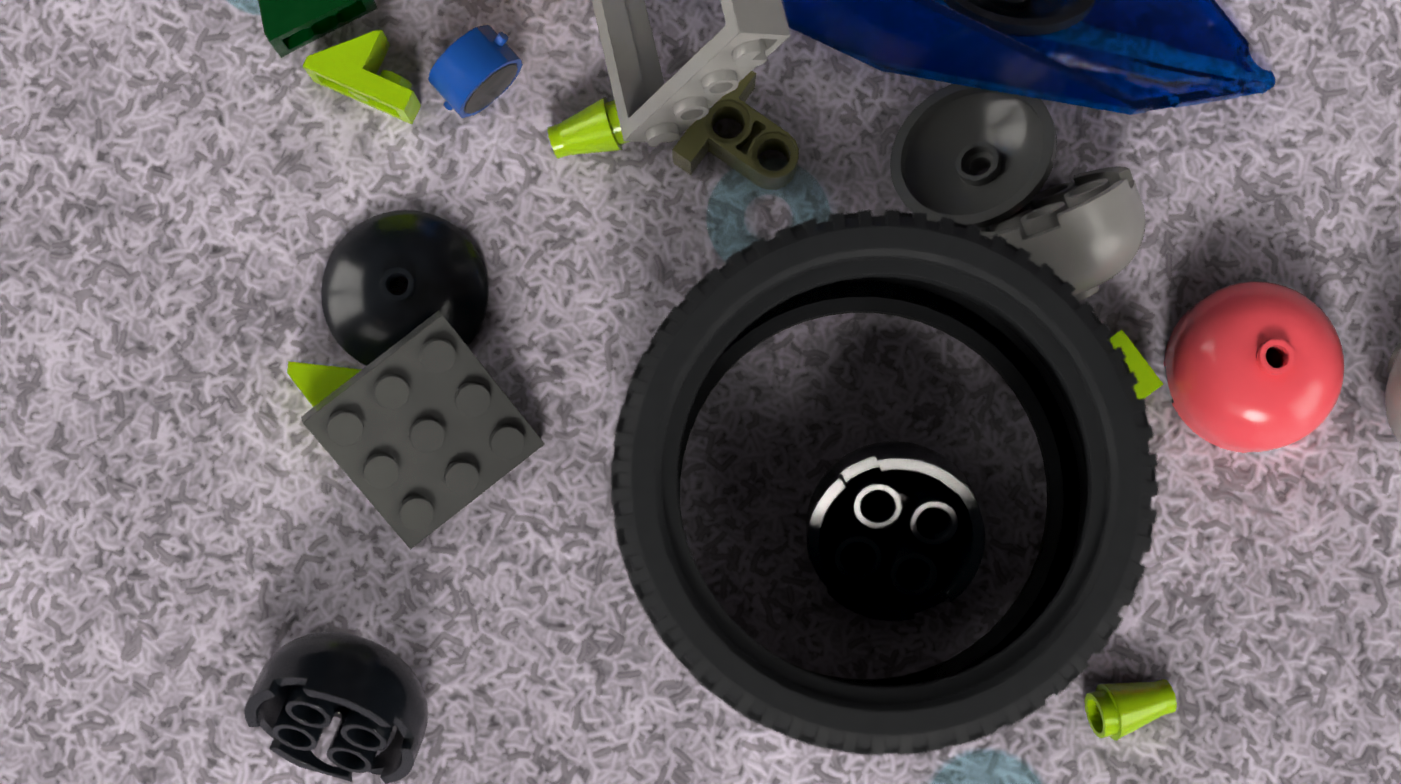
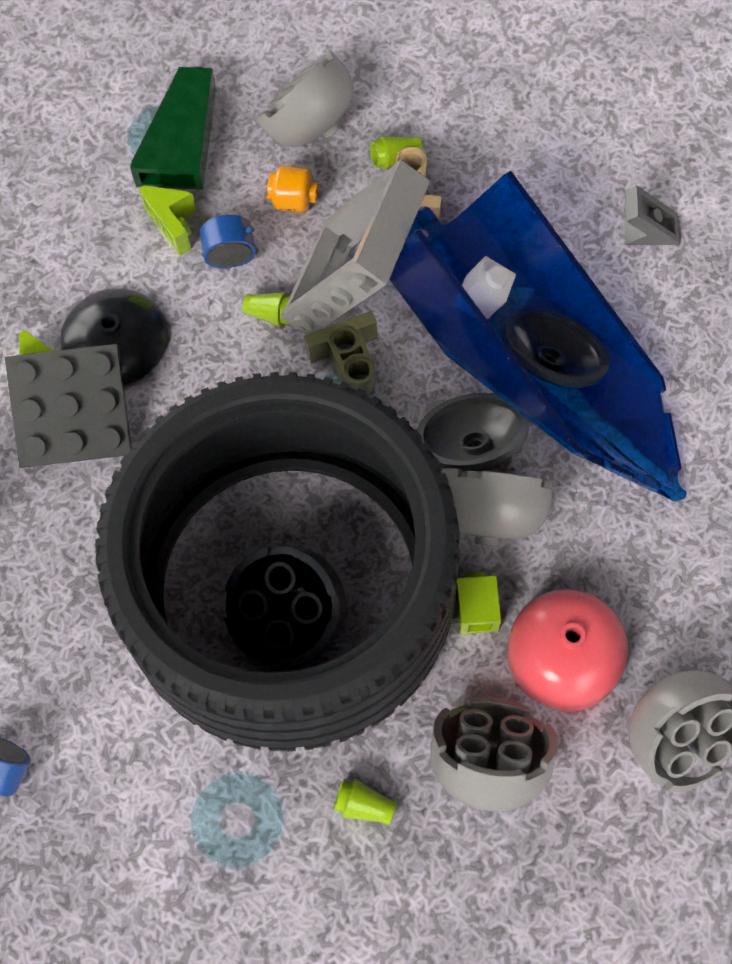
camera: 35 degrees right, 15 degrees down
(1276, 578) = (489, 773): none -> light grey cylinder

